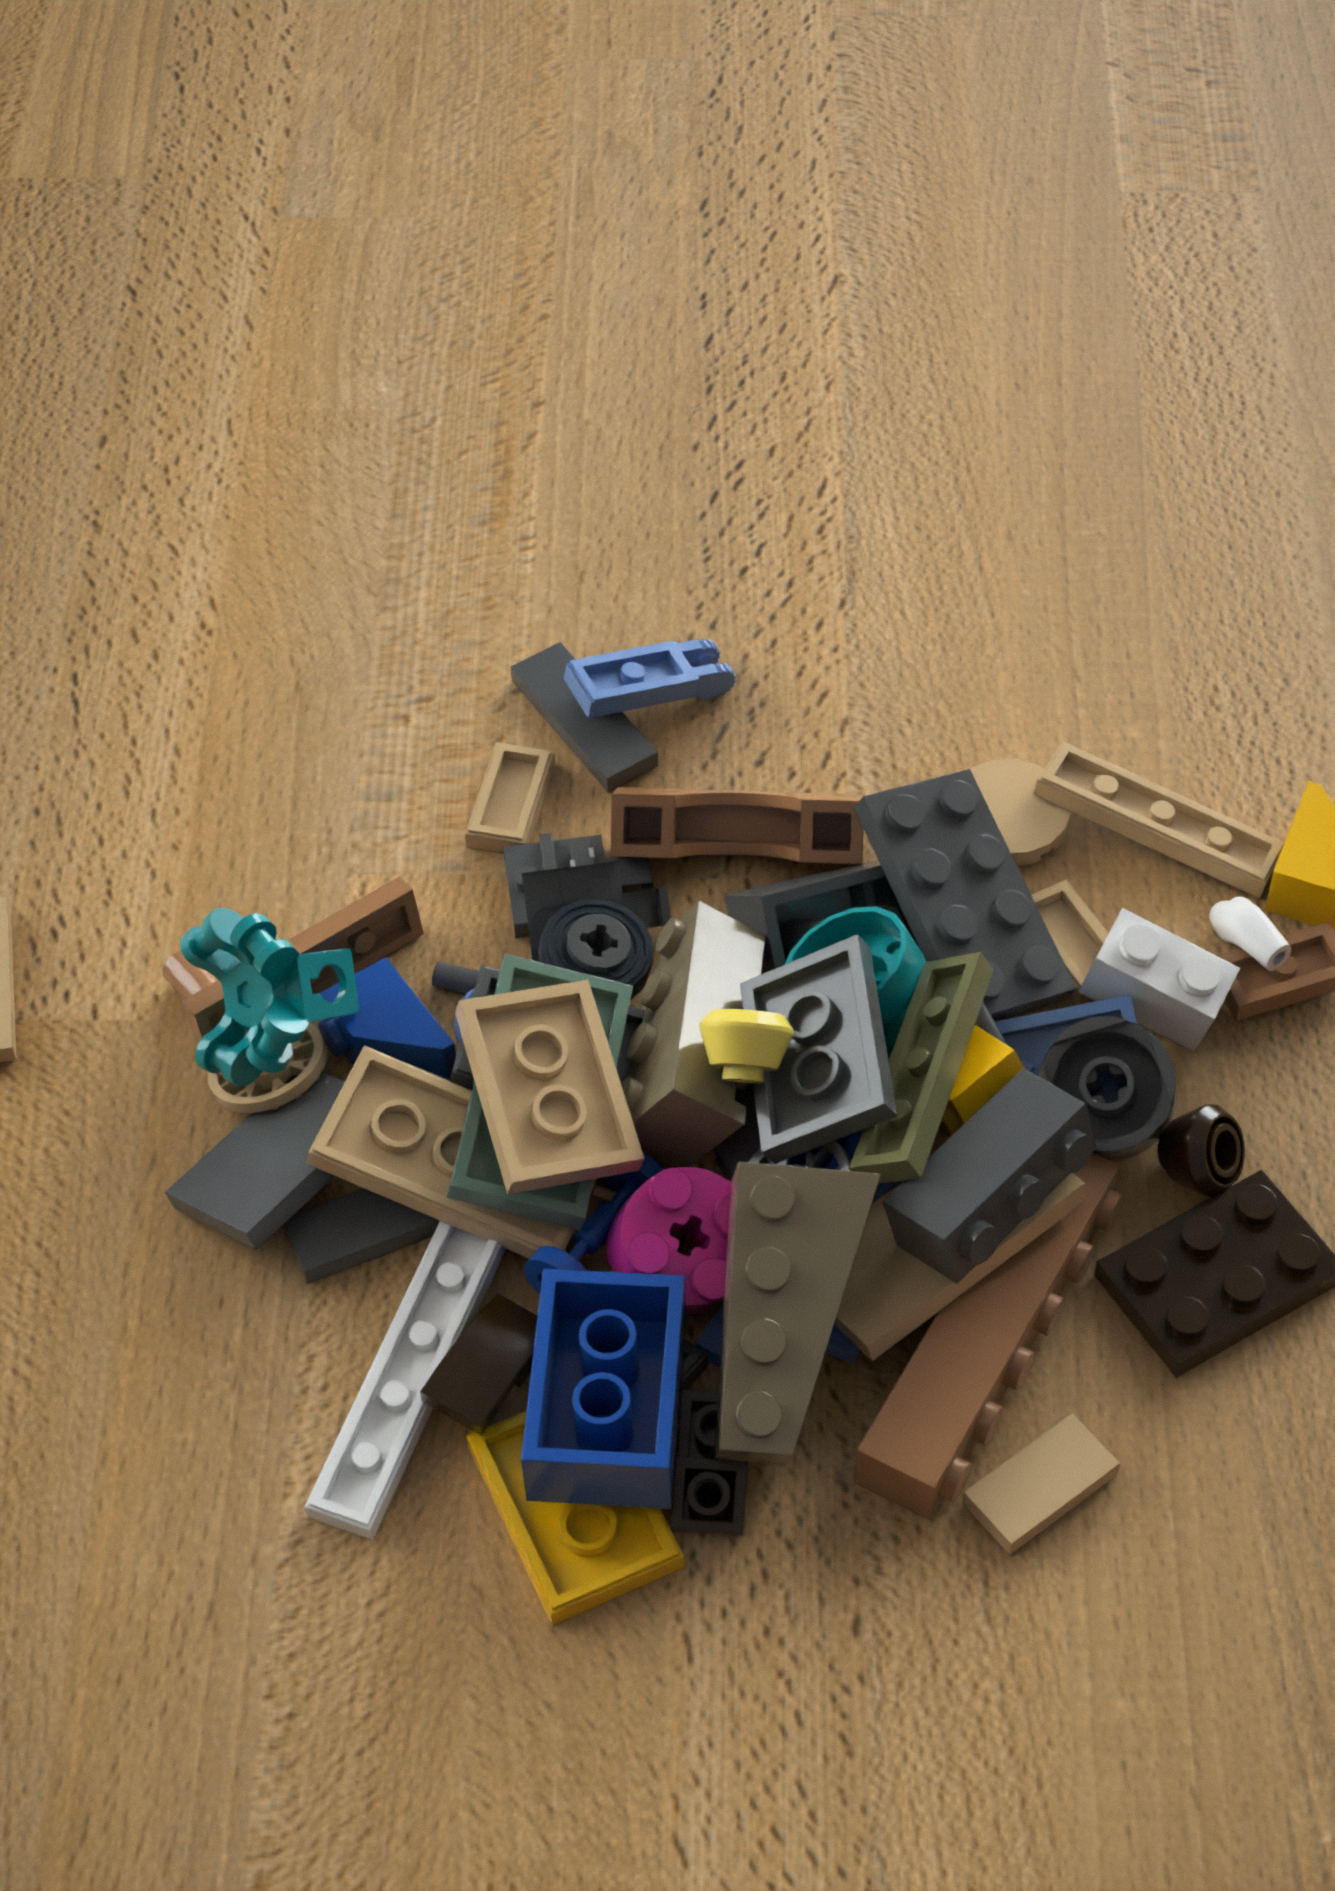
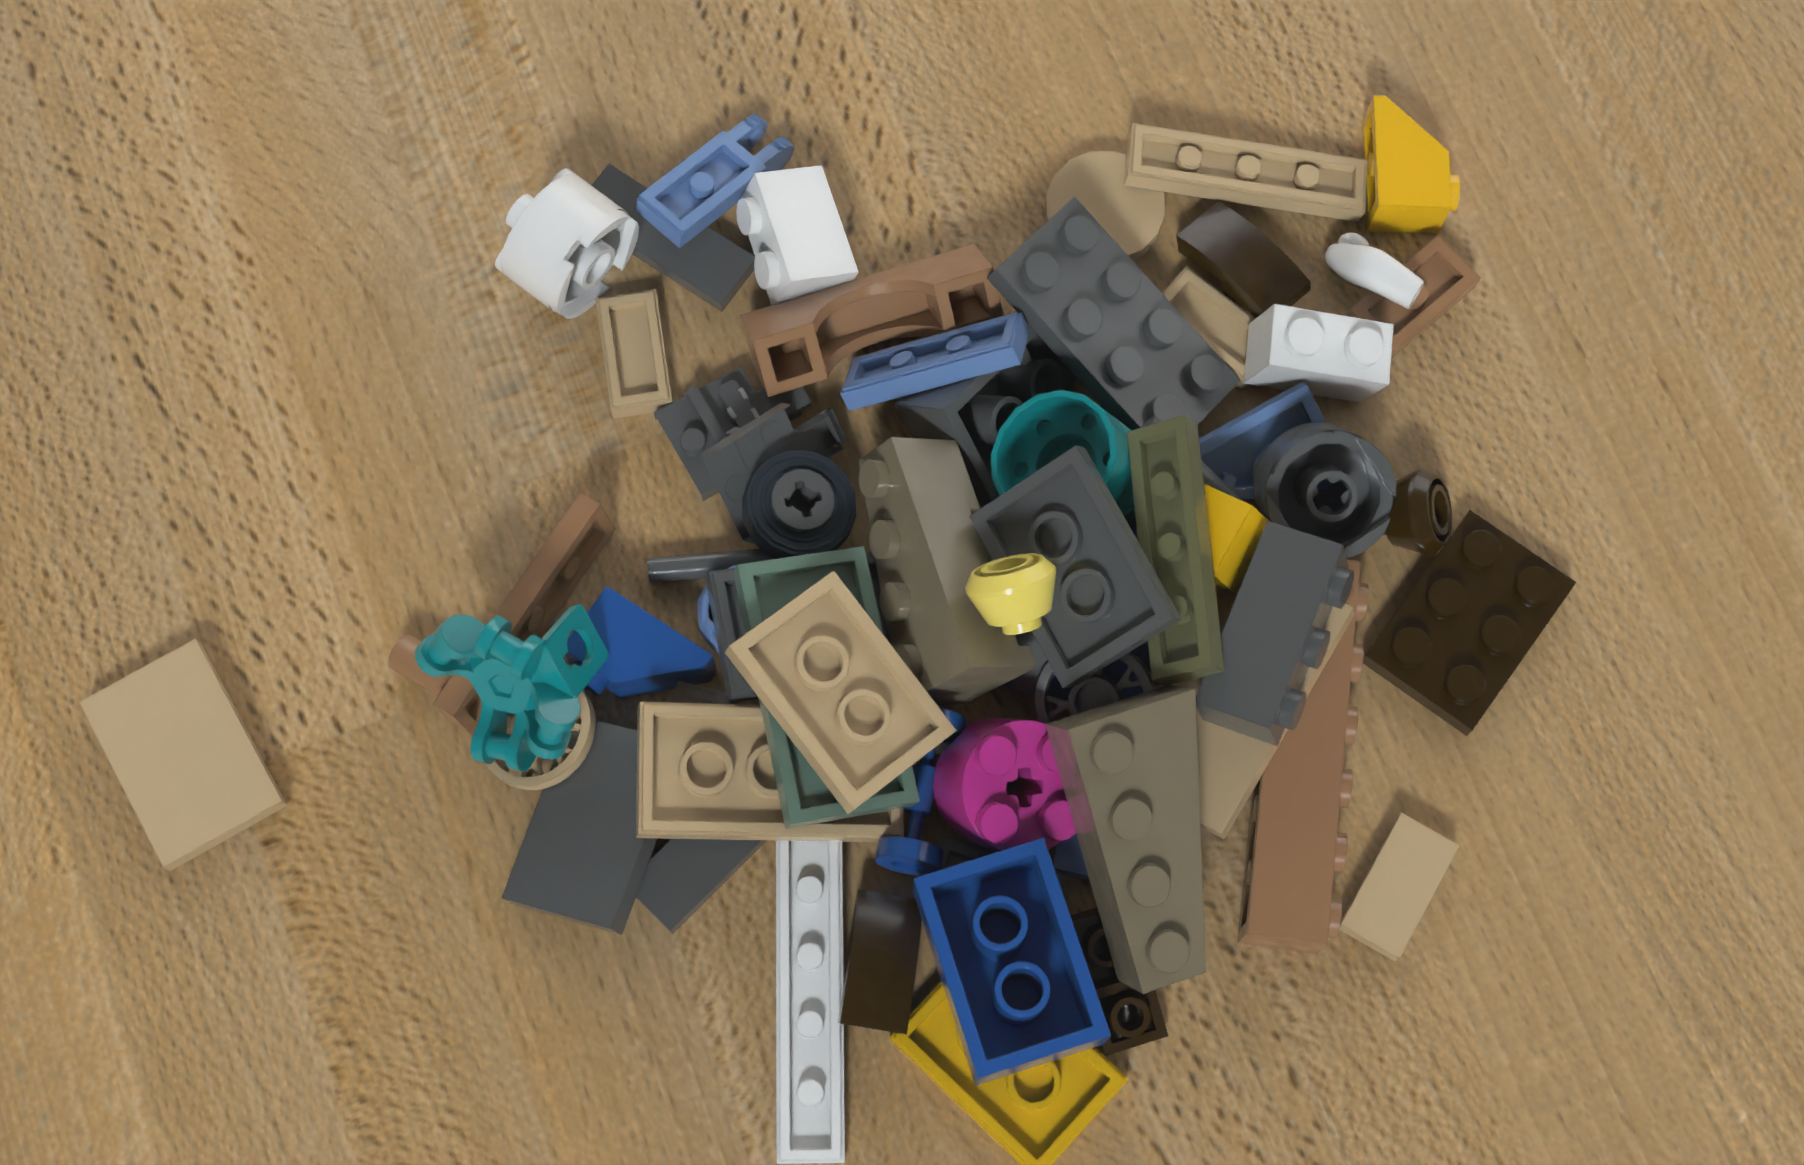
camera: 25 degrees left, 20 degrees up
(486, 681) = (566, 244): none -> white brick
(699, 734) = (795, 233): none -> white brick
(779, 869) = (936, 361): none -> medium blue tile
(1119, 880) = (1247, 261): none -> dark brown slope

